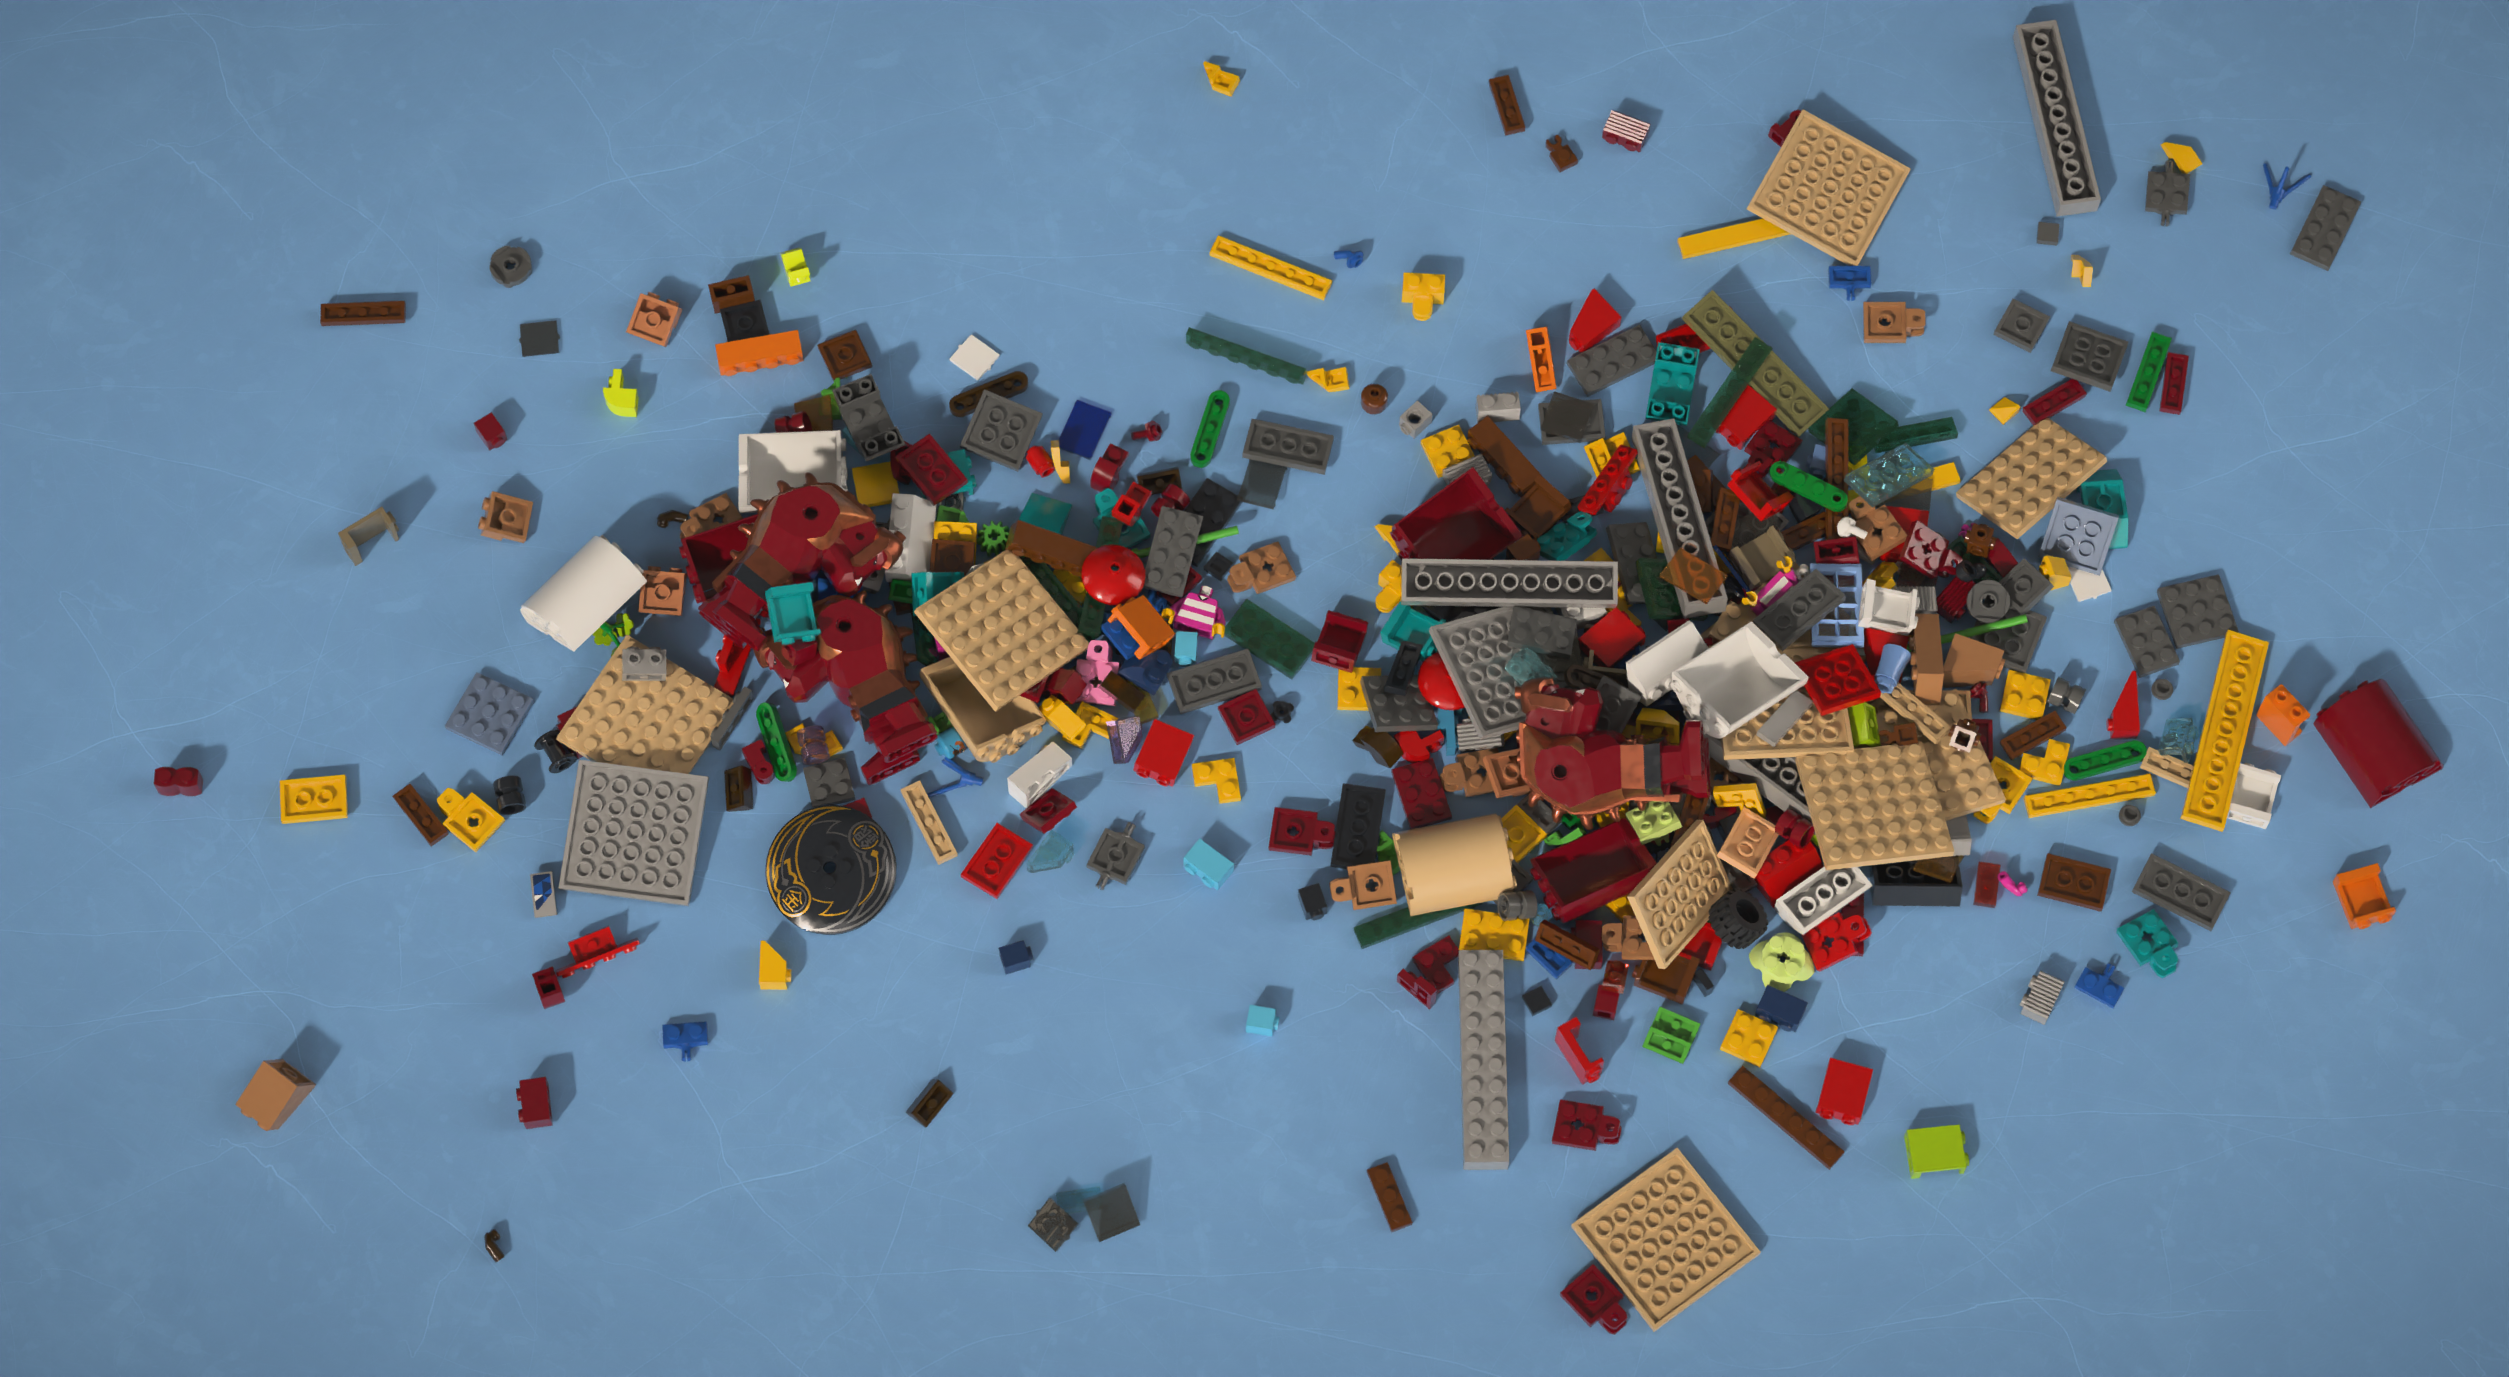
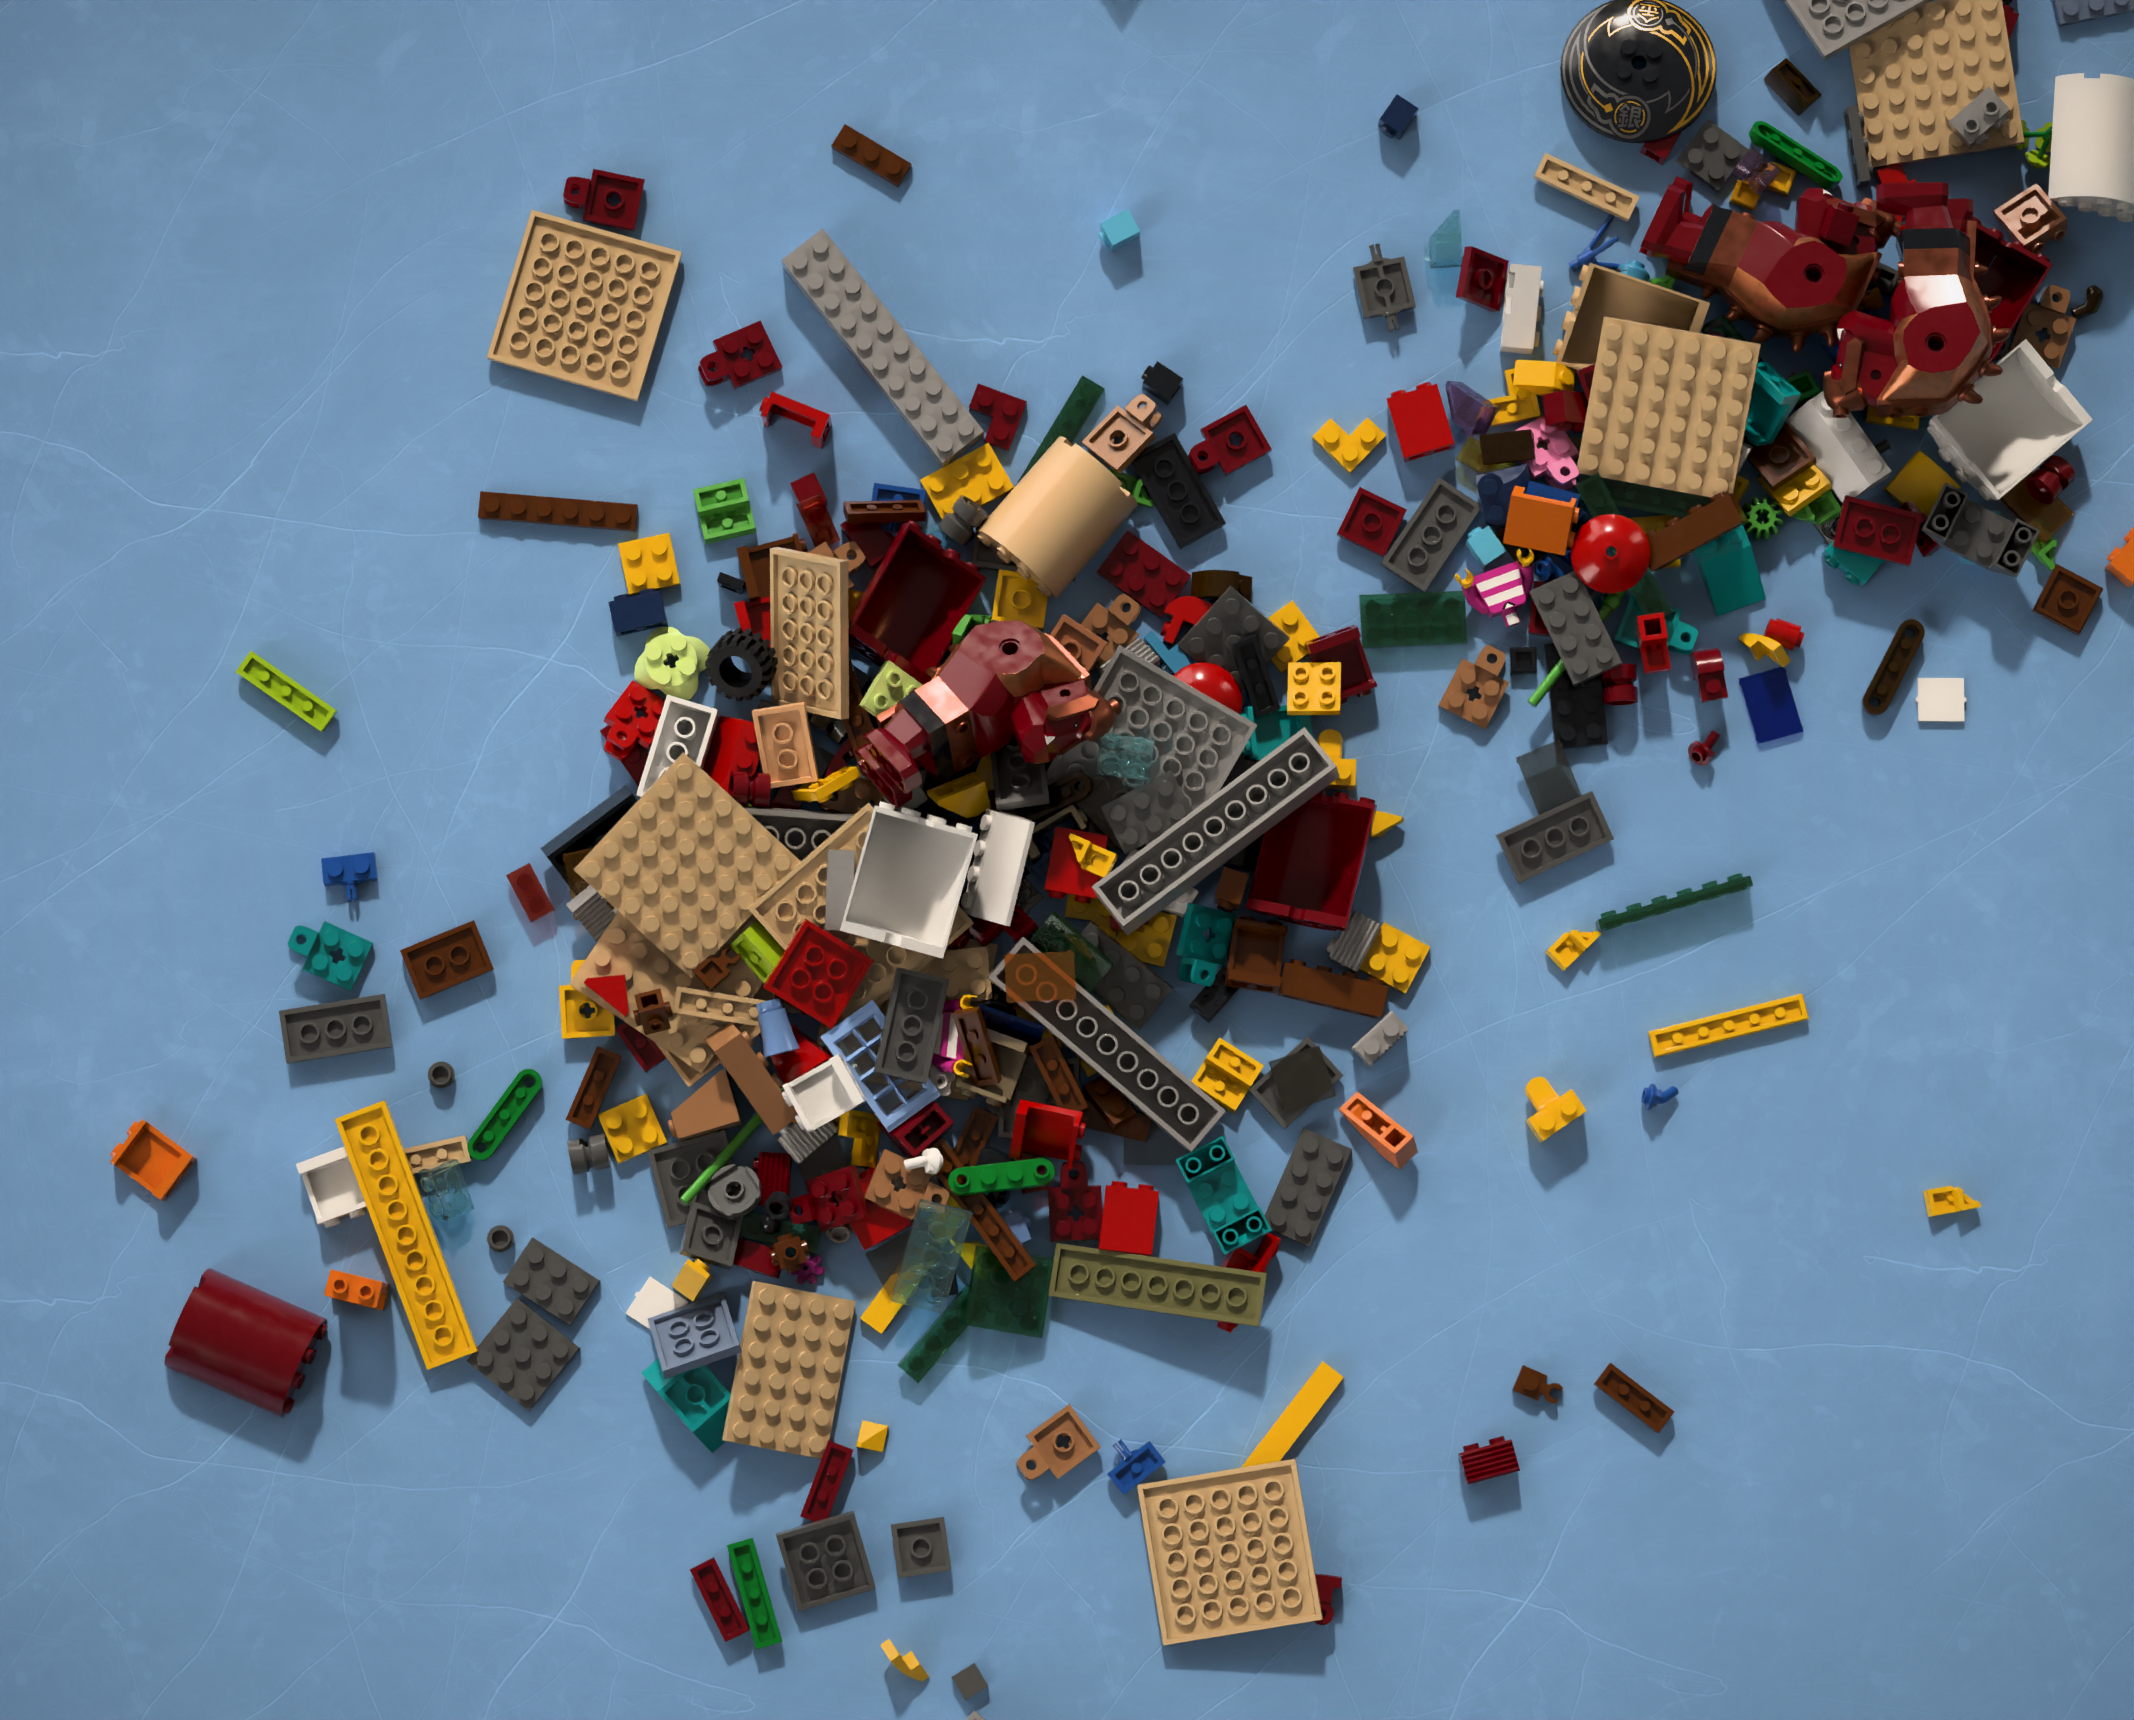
camera: 140 degrees right, 15 degrees up
(759, 766) = (1794, 121): dark red leg -> none
(792, 613) = (1869, 237): teal panel -> none
(997, 861) = (1491, 198): red plate -> none
(1001, 430) = (1847, 634): dark grey plate -> none
(1159, 480) = (1653, 706): dark brown slope -> none
(1208, 864) = (1289, 344): medium azure brick -> none
(1210, 428) = (1646, 798): green plate -> none
(1282, 706) = (1345, 548): black plate -> none
(1371, 634) = (1314, 688): none -> yellow plate
(1374, 399) = (1500, 955): reddish brown head -> none
(1418, 412) = (1451, 974): light grey brick -> none
(1420, 988) = (989, 368): dark red plate -> none
(1536, 1001) = (876, 448): black tile -> none
(1593, 323) = (1356, 1209): red slope -> none
(1599, 629) = (1092, 857): none -> yellow slope
(1610, 483) = (1205, 1038): red bracket -> none
(1729, 392) = (1157, 1224): clear green plate -> none
(1764, 570) = (977, 1046): none -> reddish brown plate
(1844, 1091) = (519, 574): red panel -> none
(1935, 1150) = (390, 580): lime panel -> none
(1979, 692) = (678, 1093): dark red plate -> none
(1984, 764) = (612, 990): none -> red slope
(2010, 885) = (505, 911): dark pink arm -> none
(2042, 997) = (396, 814): light grey brick -> none
(2051, 767) = (554, 1068): yellow plate -> none
(2061, 1131) = (286, 691): none -> lime plate
(2089, 795) = (495, 1067): yellow tile -> none
(2125, 716) = (519, 1181): red slope -> none

